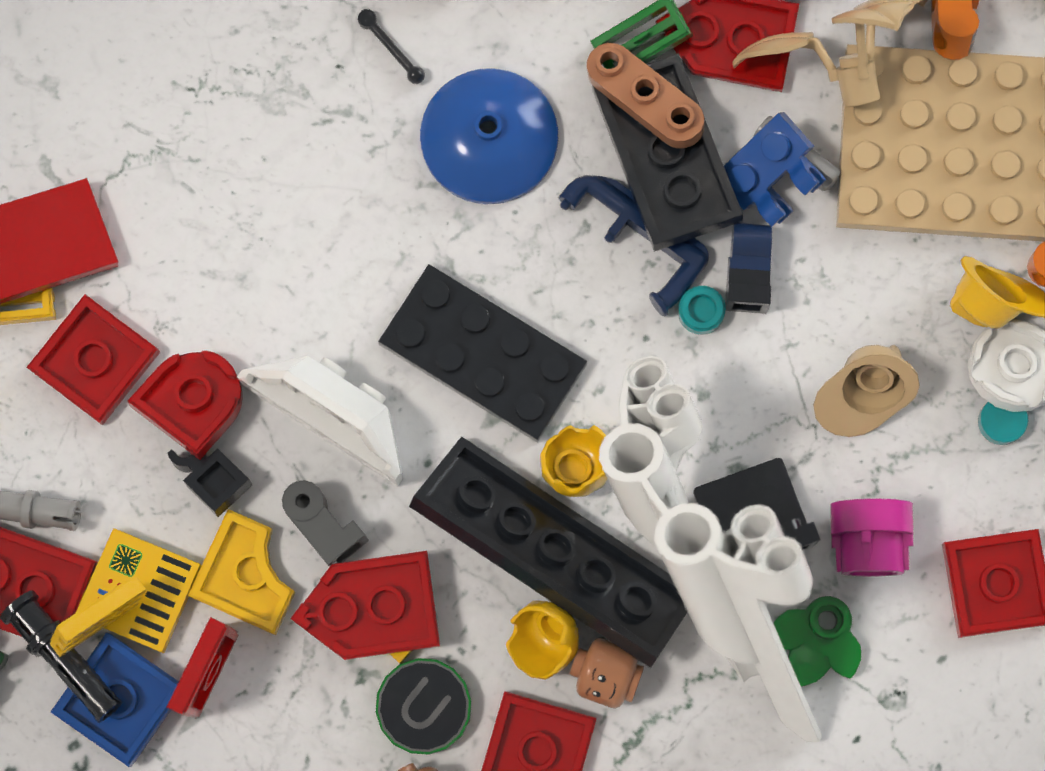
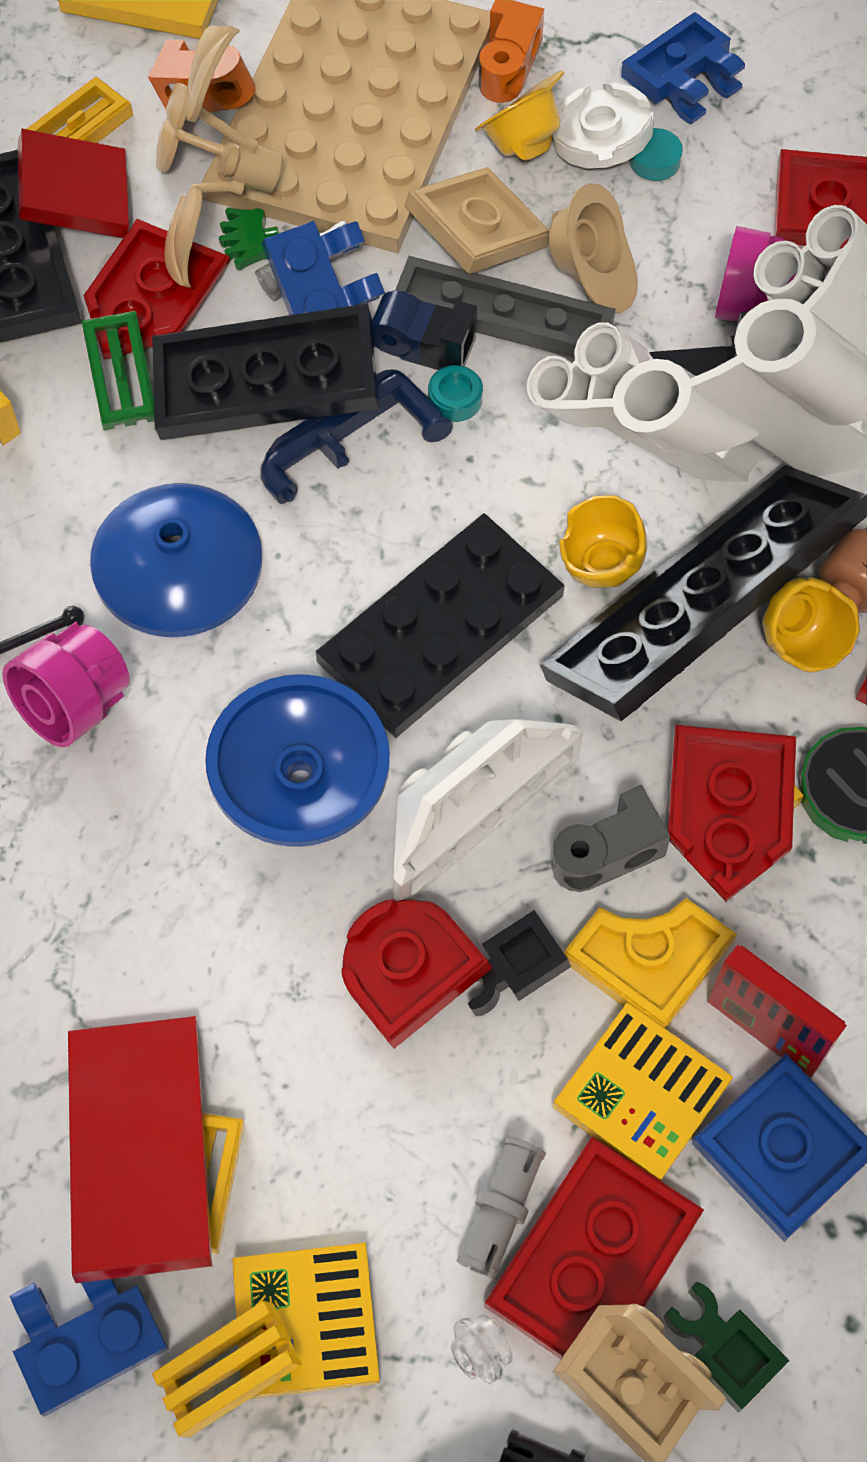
camera: 80 degrees left, 15 degrees down
(37, 630) = (693, 1210): black pin -> none
(93, 359) = (316, 1083): red tile -> none
(97, 615) = (681, 1126): yellow tile -> none
(318, 244) = (289, 728): none -> blue dish
(345, 90) = (66, 683): none -> dark pink piece
(651, 111) = (179, 388): nougat plate -> none
(791, 329) = (506, 307): none -> dark grey plate
(813, 100) = (244, 235): none -> green piece
(876, 283) = (477, 220): none -> tan tile

